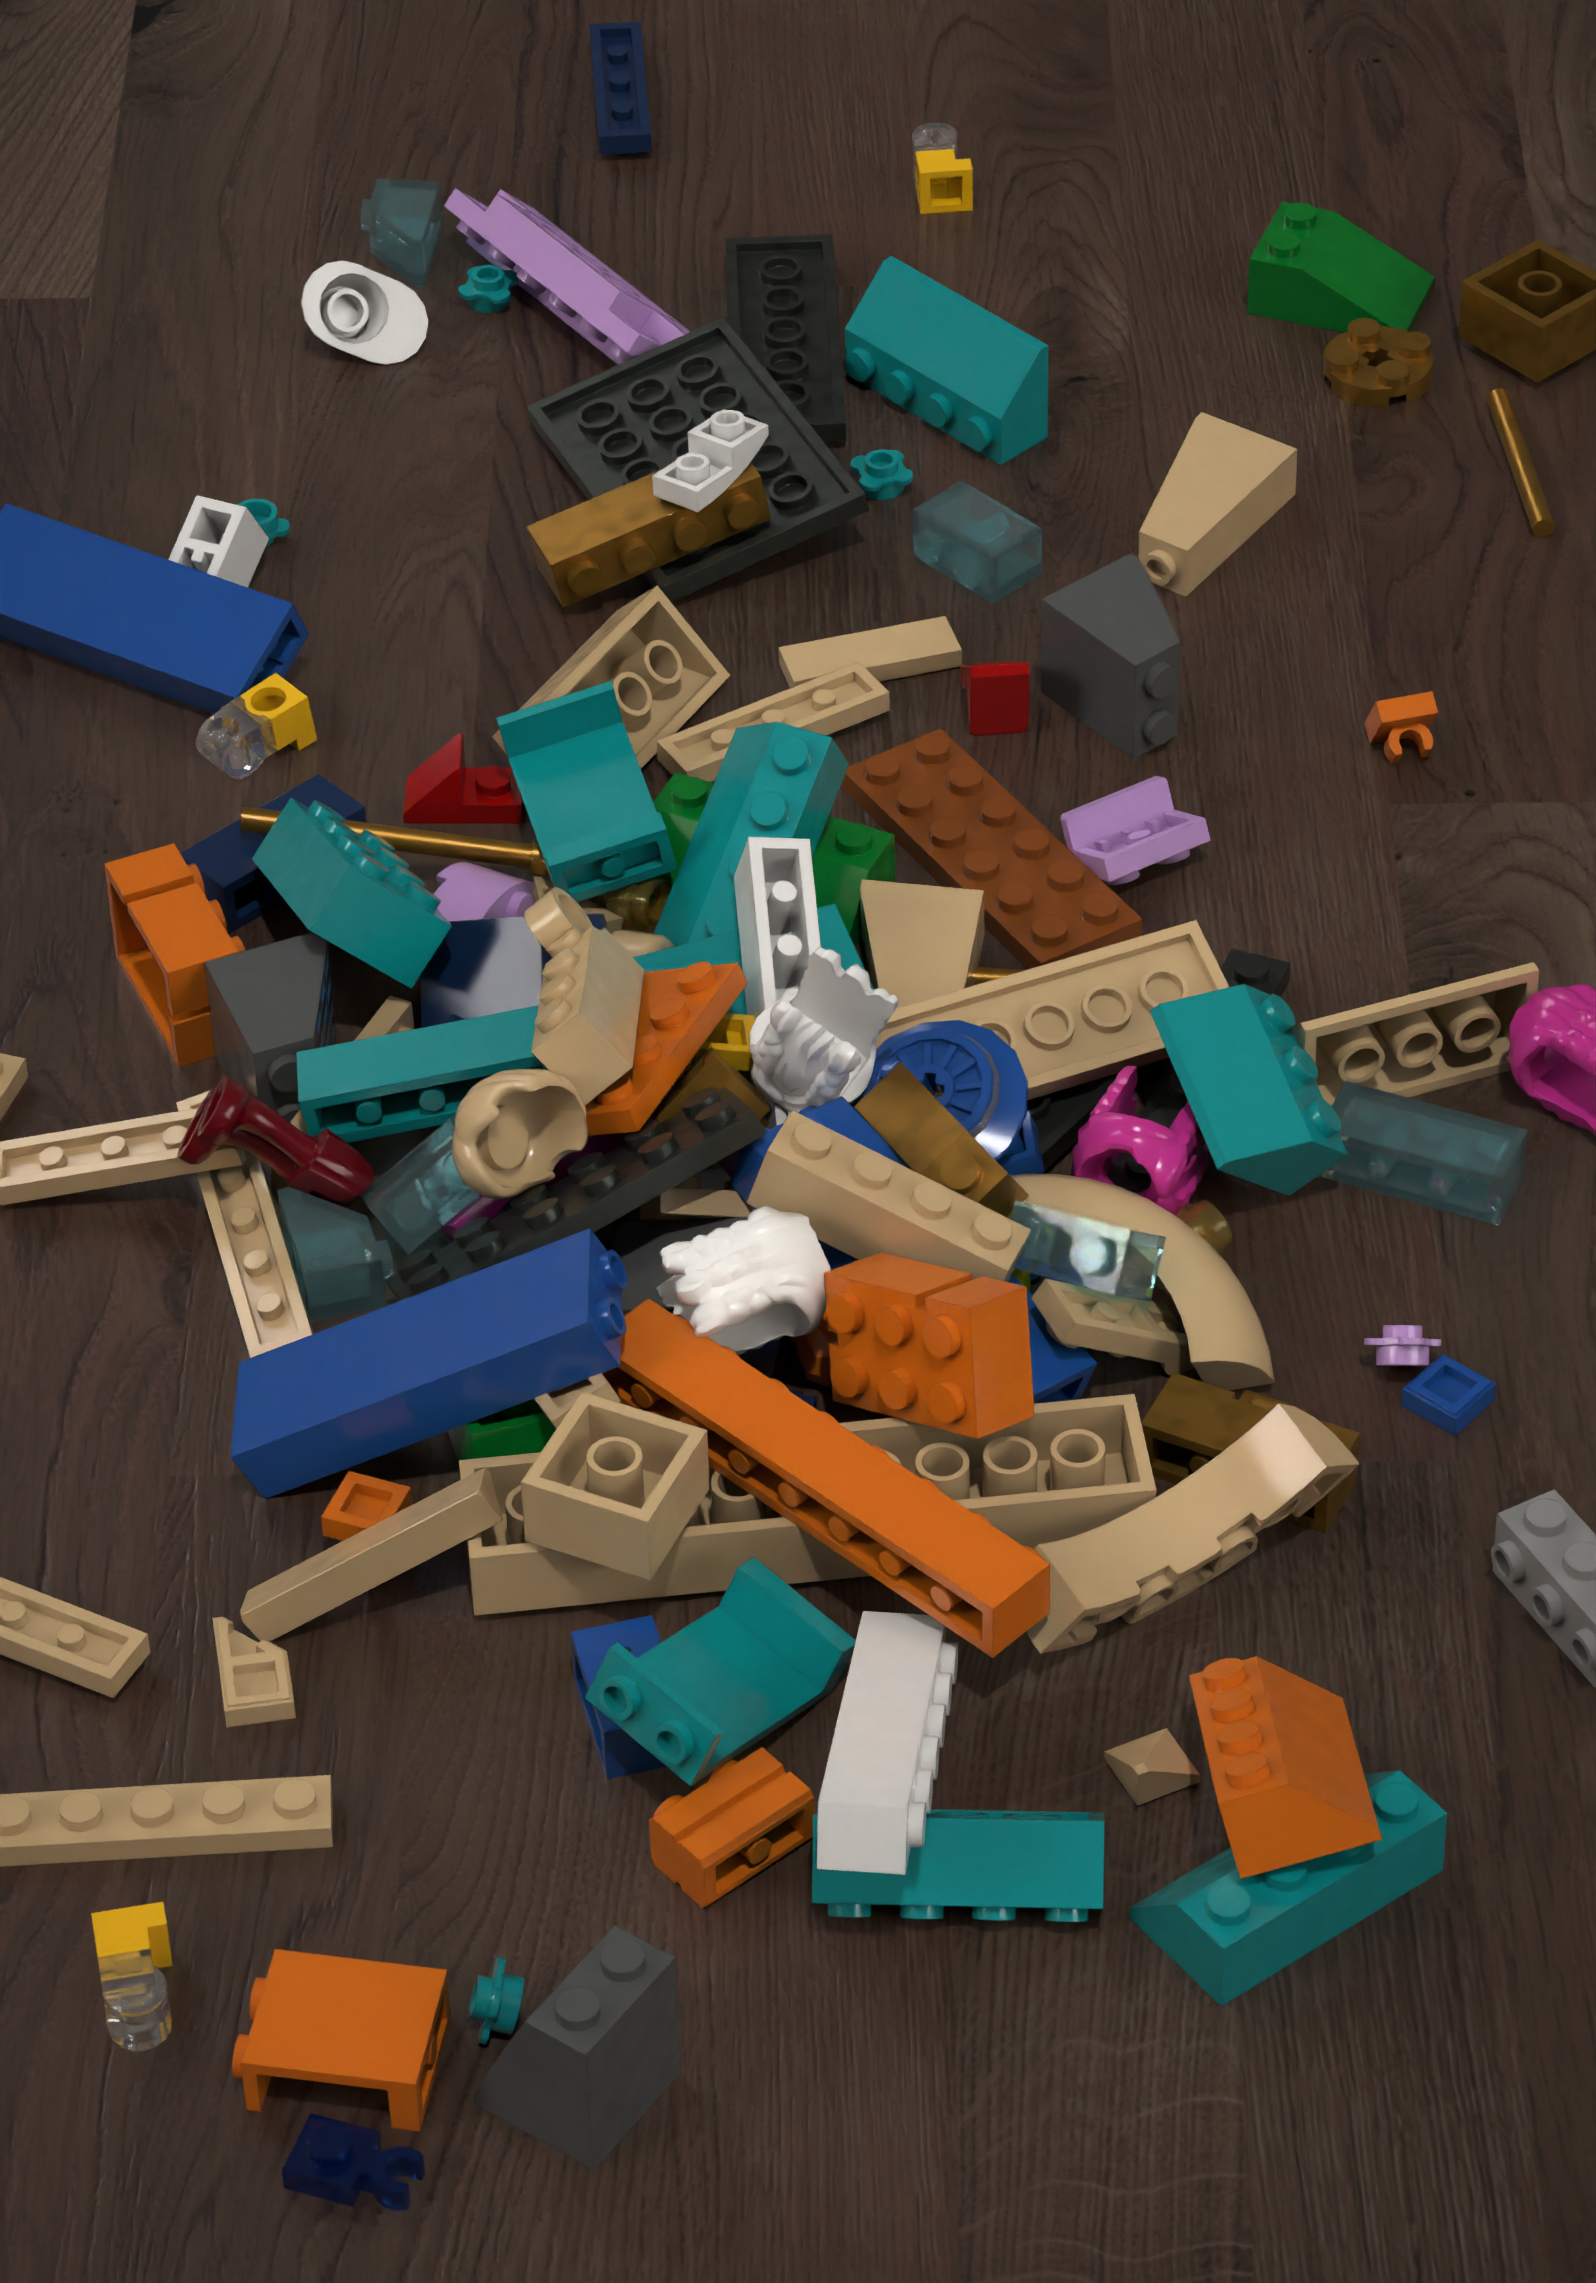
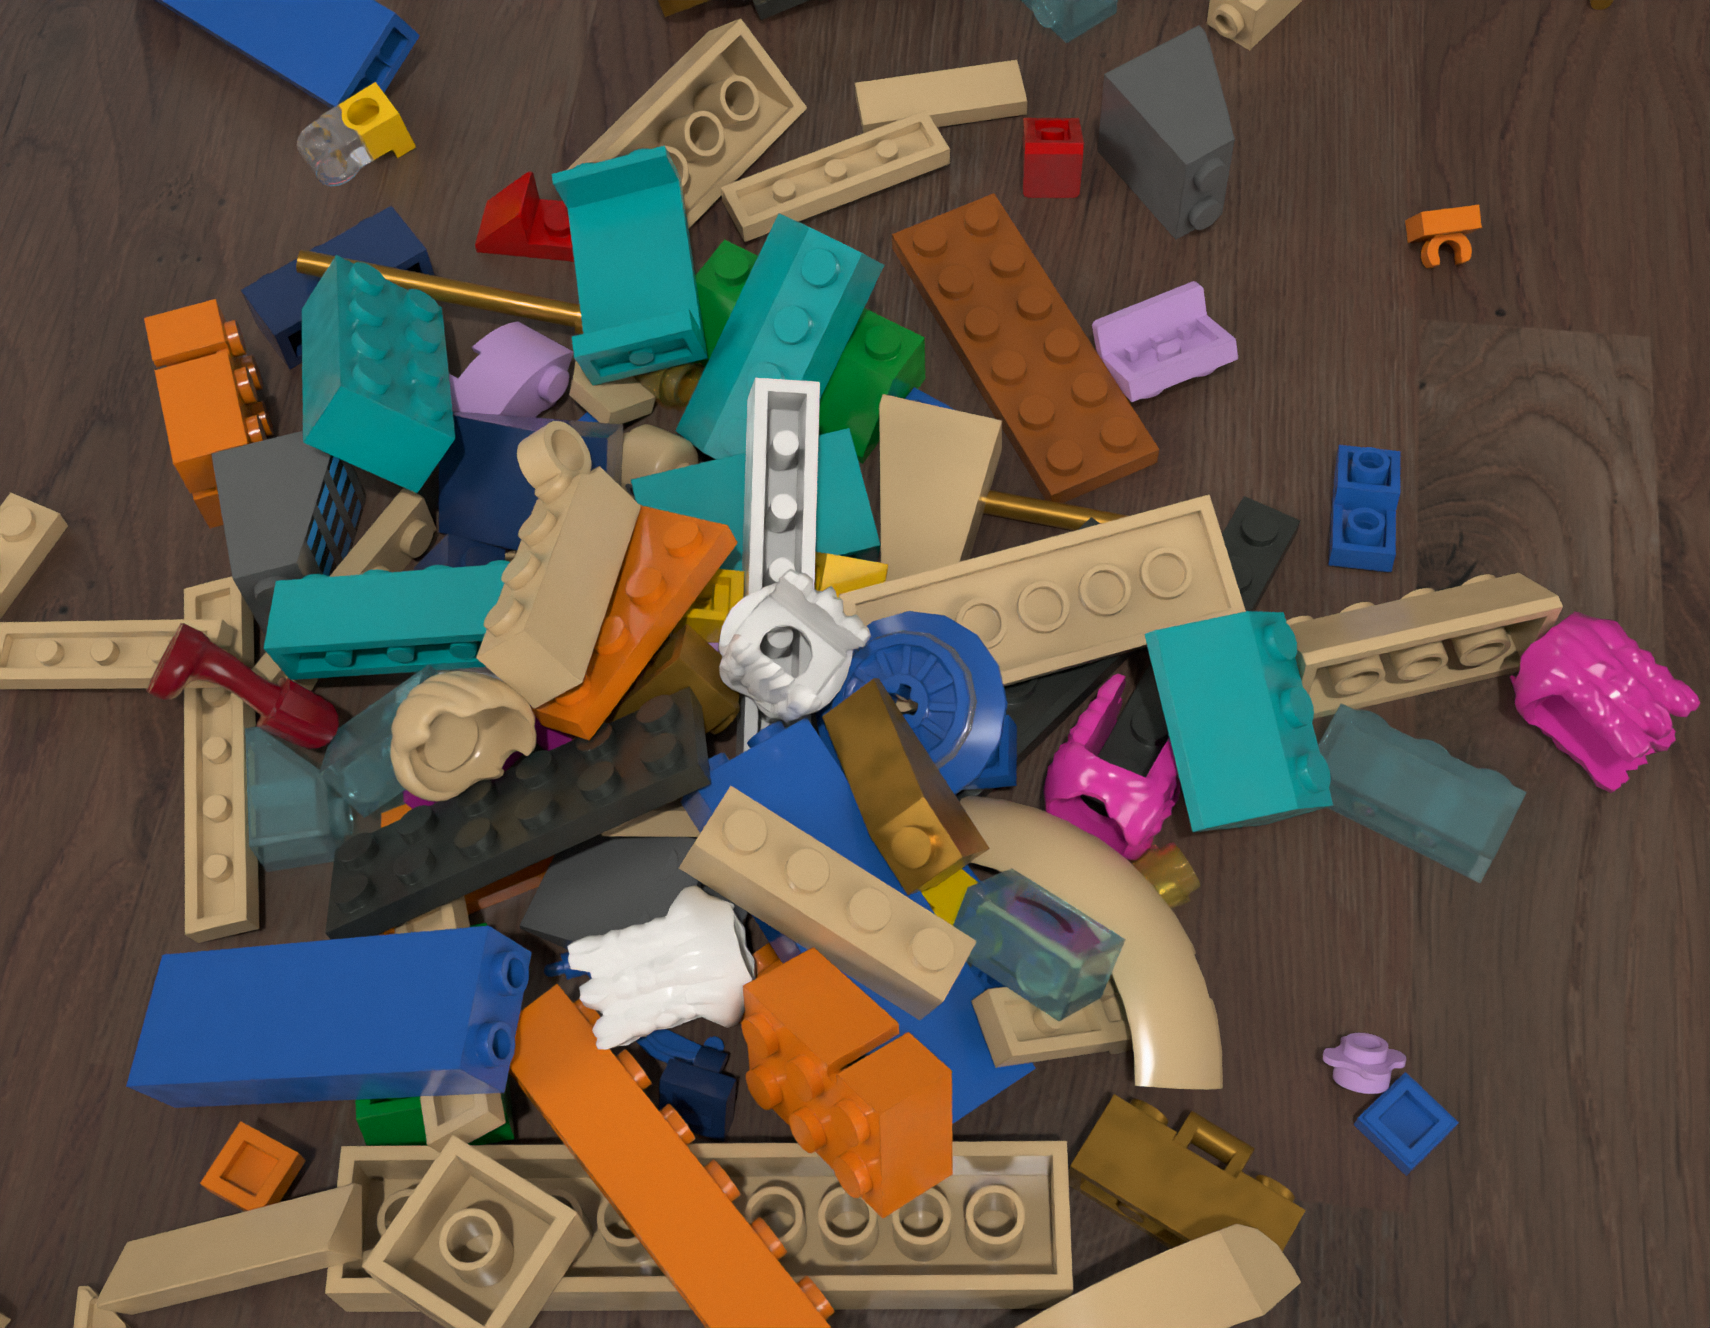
camera: 10 degrees right, 20 degrees up
(1352, 950) = (1364, 508): none -> blue slope

